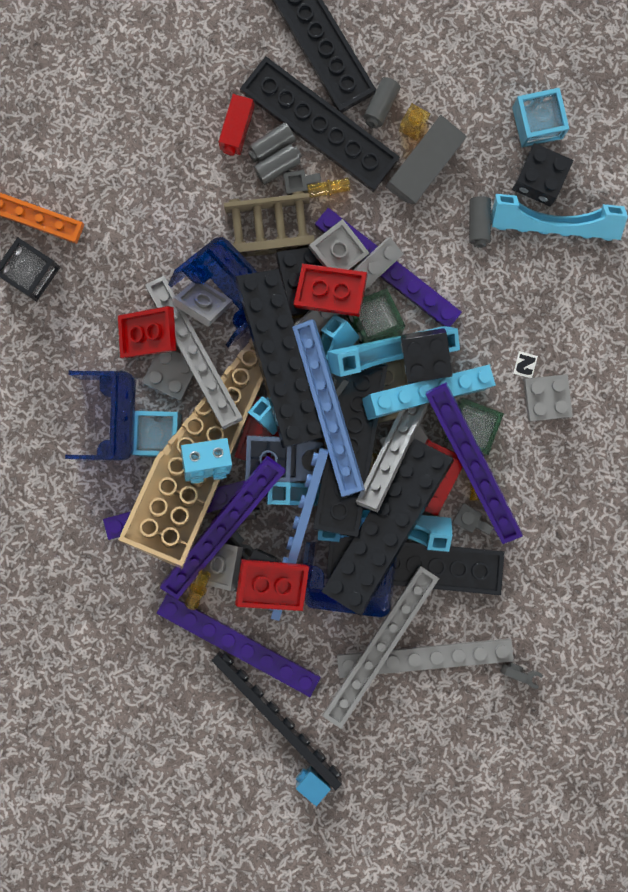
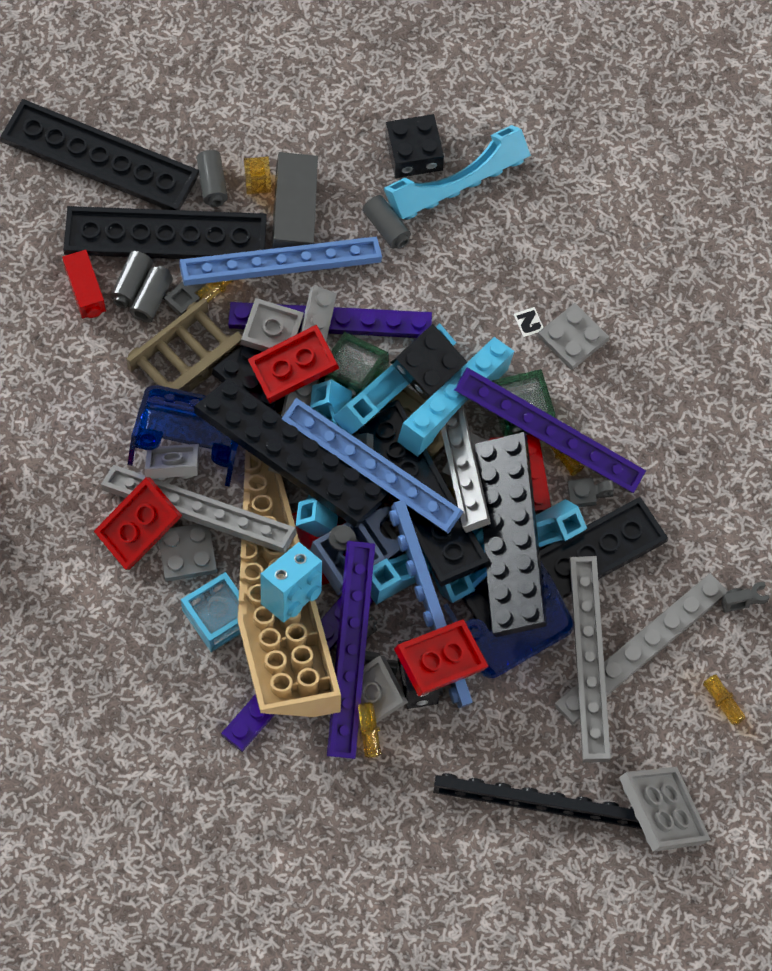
camera: 40 degrees left, 20 degrees down
(122, 390) = (155, 591): clear blue windscreen -> none
(239, 645) = (451, 760): dark purple plate -> none
(267, 447) = (339, 536): none -> dark grey plate
(312, 785) = (625, 840): dark azure brick -> none
(350, 789) = (664, 808): none -> light grey plate
(382, 201) = (280, 261): none -> medium blue plate
(452, 735) = (724, 699): none -> clear yellow axle
(540, 117) = (374, 98): piece -> none

